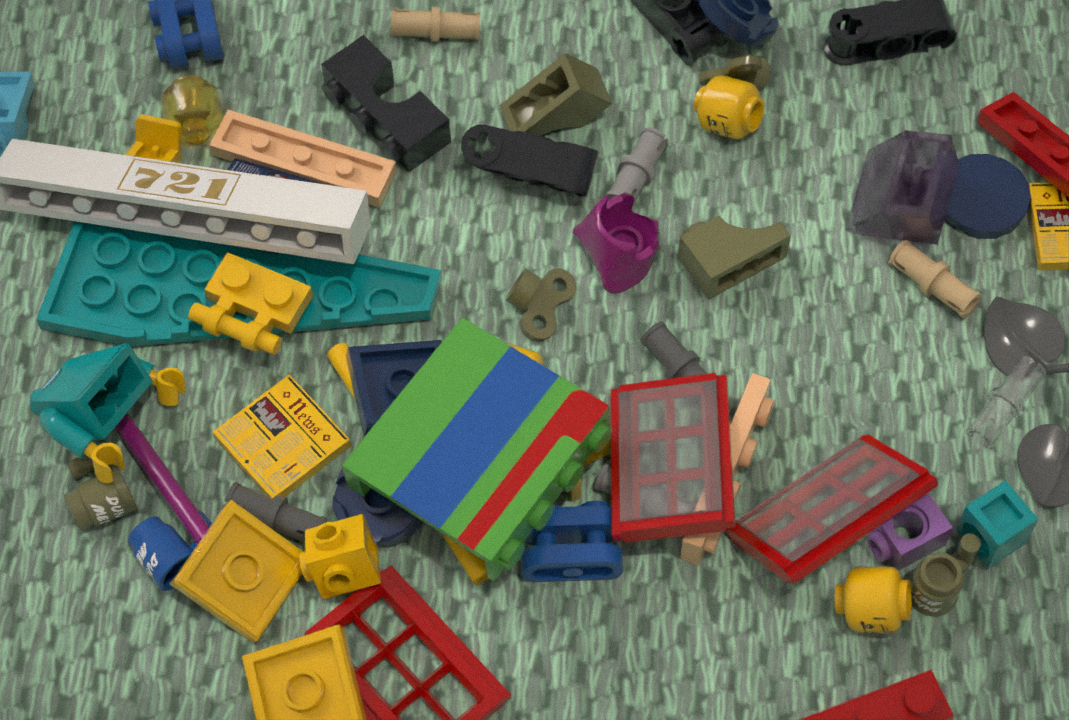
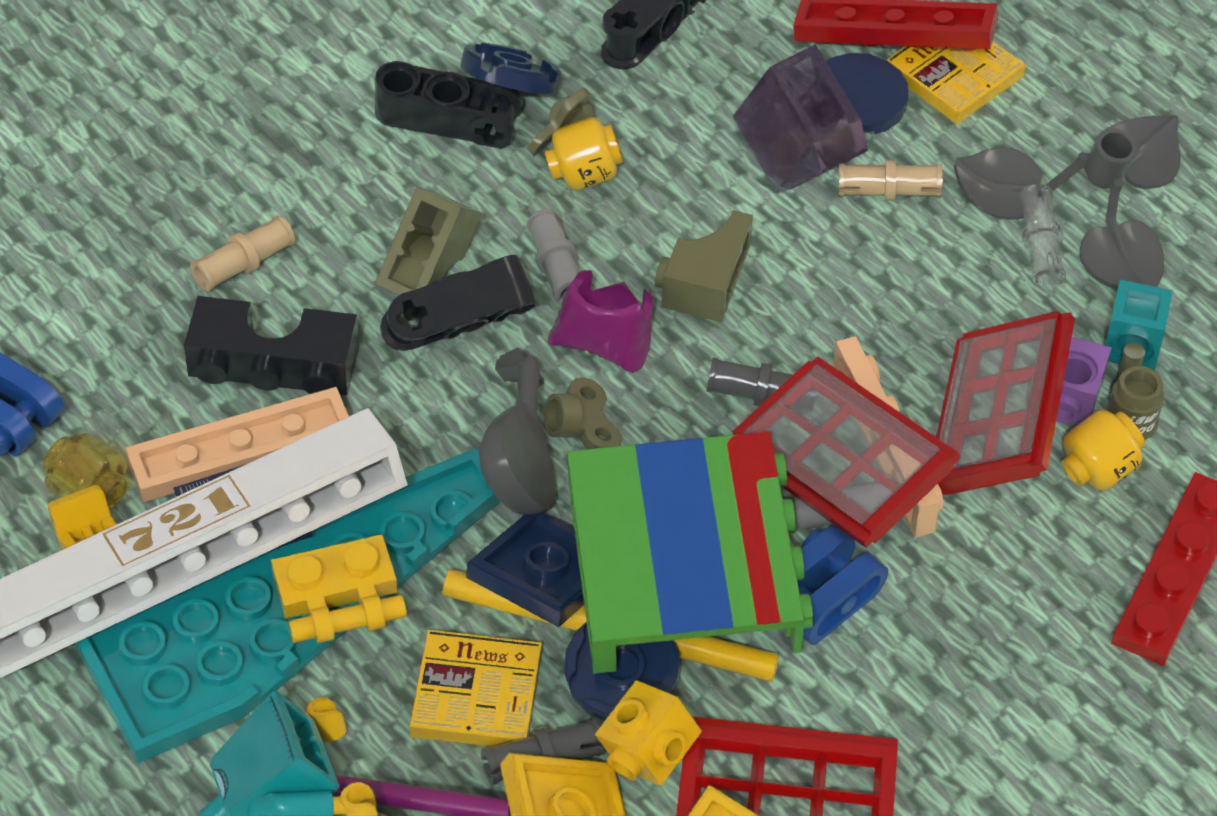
camera: 45 degrees left, 10 degrees down
(461, 286) = (514, 445): none -> dark grey piece

